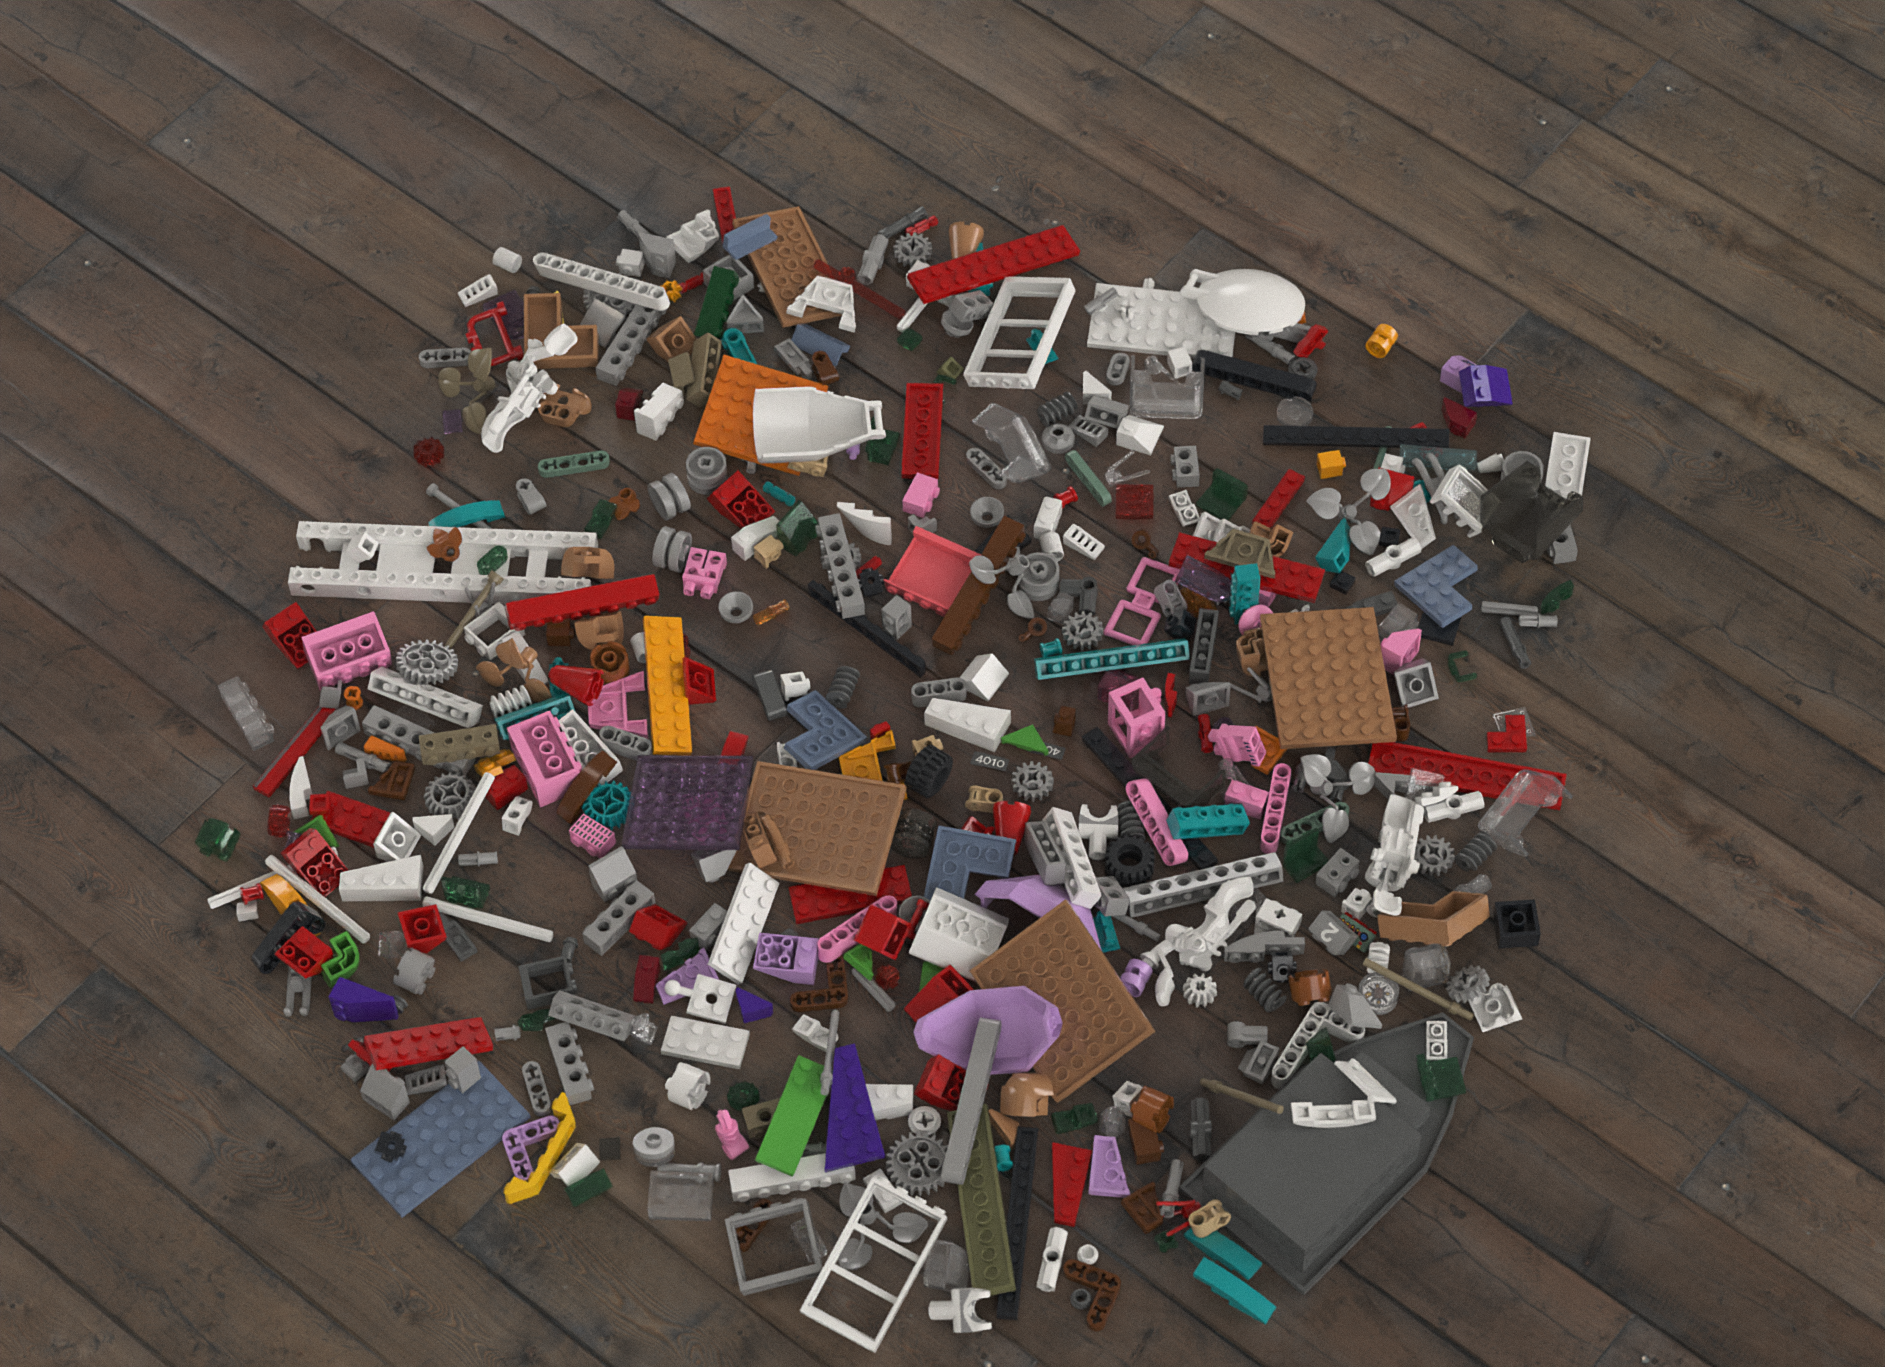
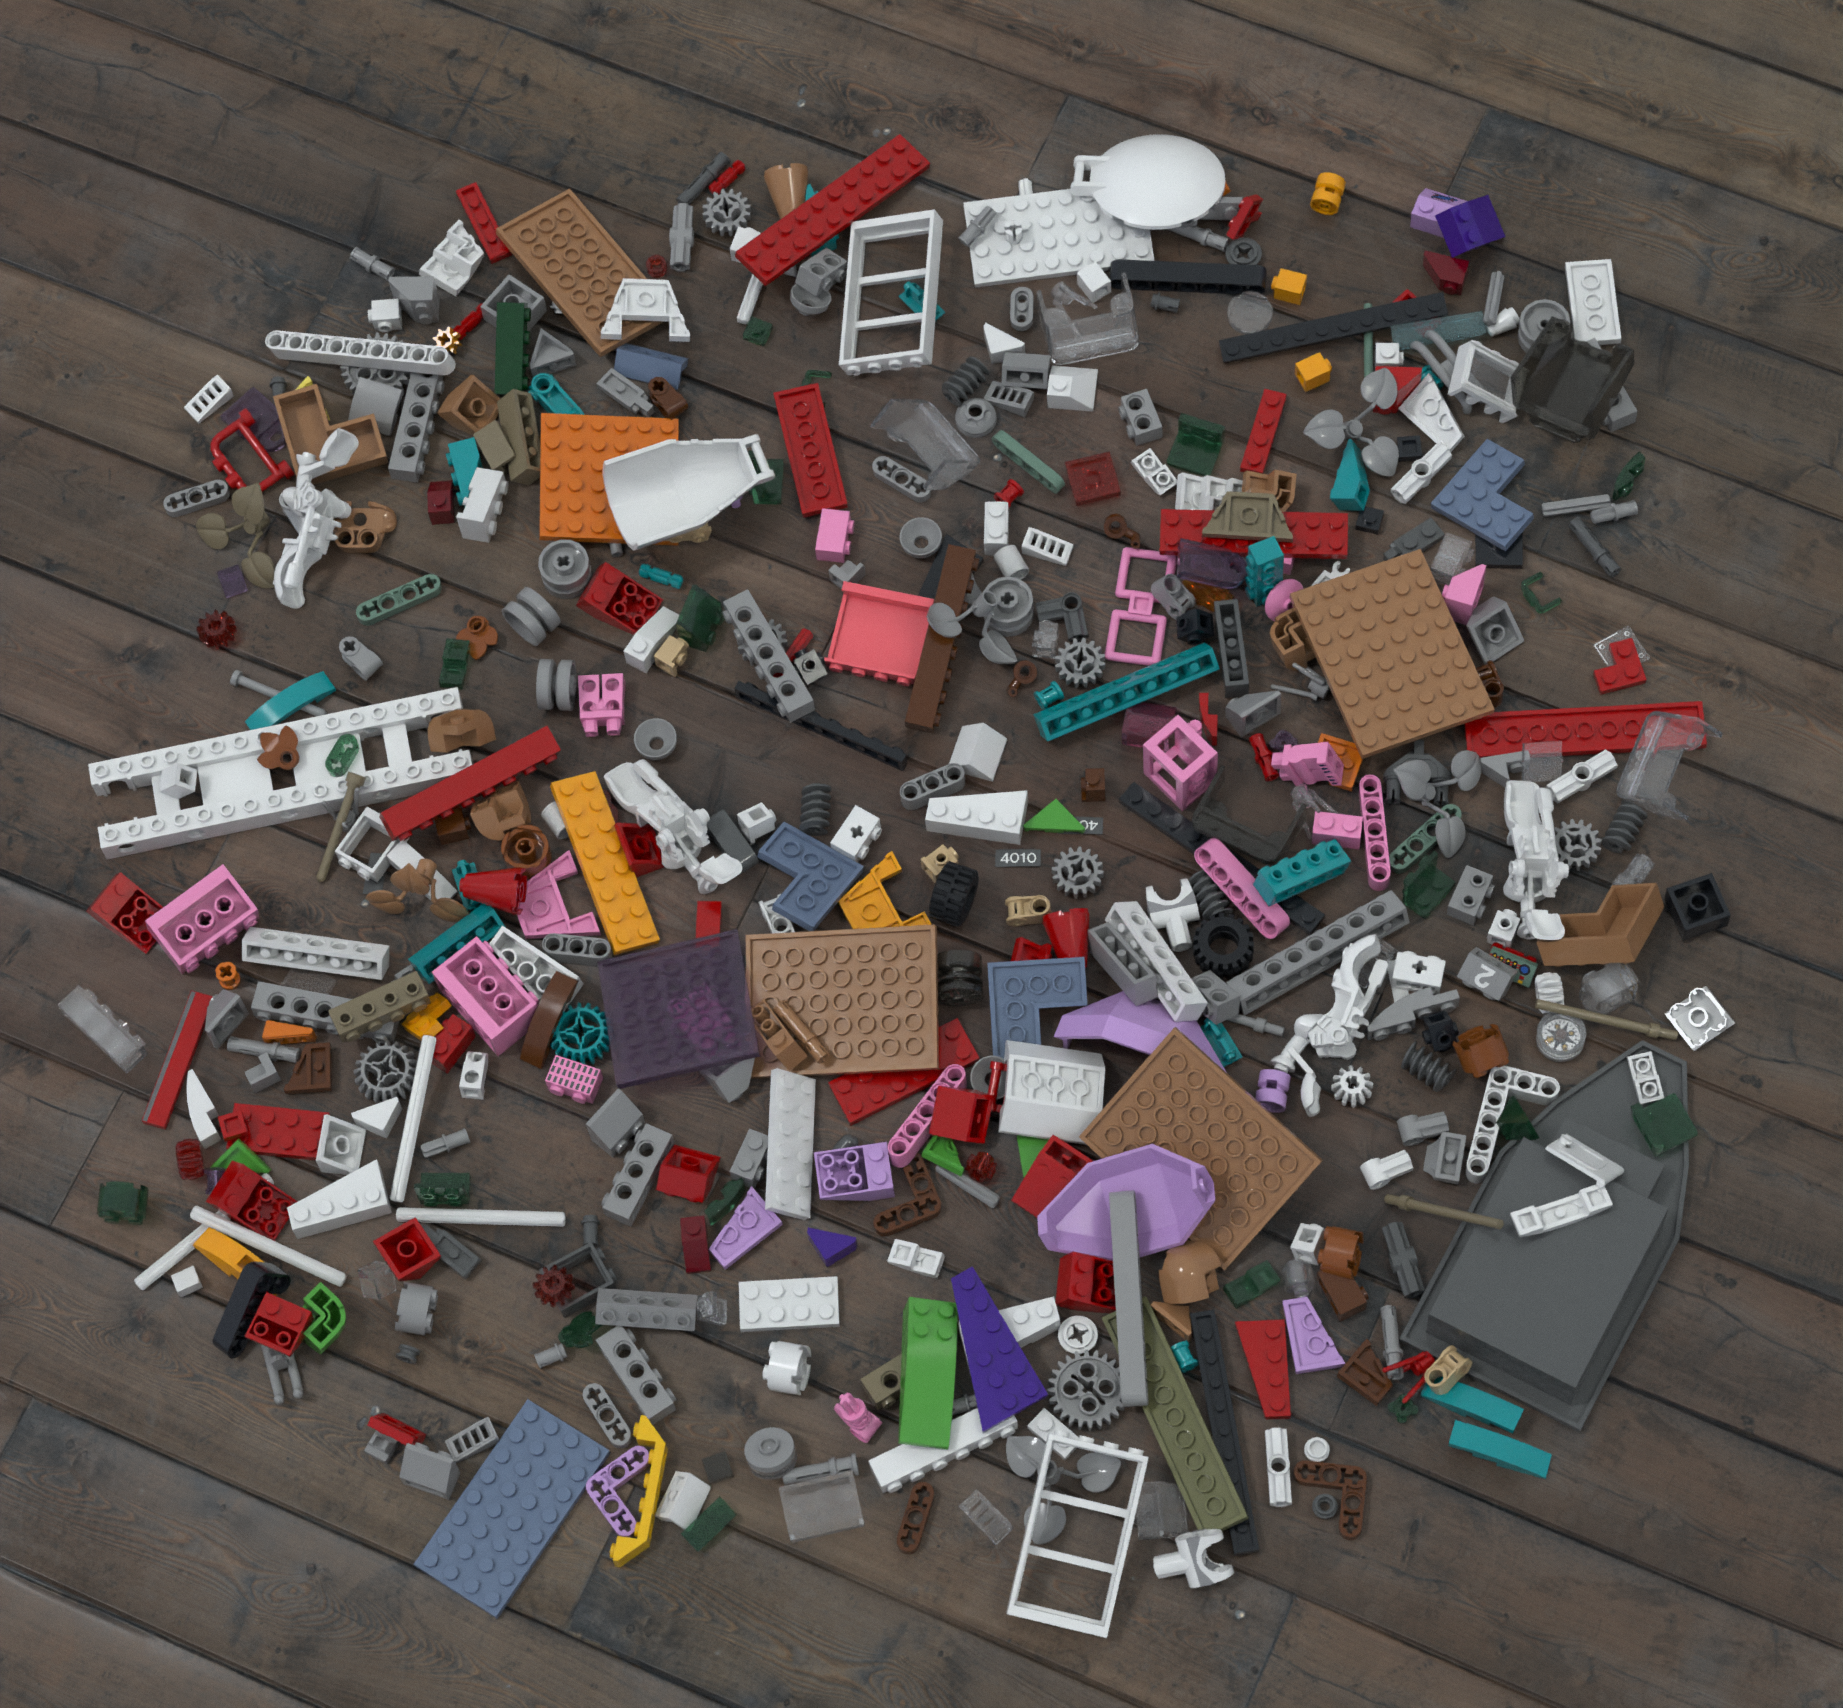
camera: 10 degrees left, 10 degrees up
(251, 893) = (186, 1260): red bush -> none
(330, 696) = (200, 983): light grey panel -> none
(361, 1004) = (364, 1367): dark purple slope -> none
(387, 1139) = (450, 1539): black brick -> none
(426, 662) = (303, 907): light grey gear -> none
(427, 1043) = (463, 1397): red plate -> none
(462, 1070) = (515, 1421): light grey brick -> none
(507, 260) = (232, 349): white piece -> none
(509, 701) = (420, 931): white piece -> none
(525, 978) = (559, 1292): none -> clear red gear
(654, 374) = (465, 459): none -> teal slope
(698, 1005) = (765, 1239): white plate -> none
(730, 670) = (679, 827): none -> white piece
(738, 1102) = (854, 1370): clear green gear -> none
(749, 237) = (525, 249): sand blue panel -> none
(771, 612) = (699, 733): clear orange axle -> none
(780, 1279) = (921, 1508): light grey window -> none
(826, 1076) = (952, 1316): light grey bar -> none
(860, 289) = (678, 281): clear red axle -> none
(869, 712) = (857, 823): none -> white brick
(874, 528) = (794, 595): white slope -> none
(879, 730) = (876, 854): red plate -> none
(896, 617) = (854, 705): light grey brick -> none
(897, 771) = (916, 904): reddish brown piece -> none
(950, 368) = (818, 358): olive slope -> none
(1114, 477) = (1060, 453): clear plant -> none
(1203, 1059) = (1380, 1171): none -> white piece
(1331, 400) = (1289, 286): none -> light orange brick
(1353, 1007) = (1539, 1065): light grey slope -> none
(1439, 793) = (1563, 765): white slope -> none
(1467, 984) = (1661, 997): light grey gear -> none
(1488, 444) = (1493, 298): none -> light grey axle

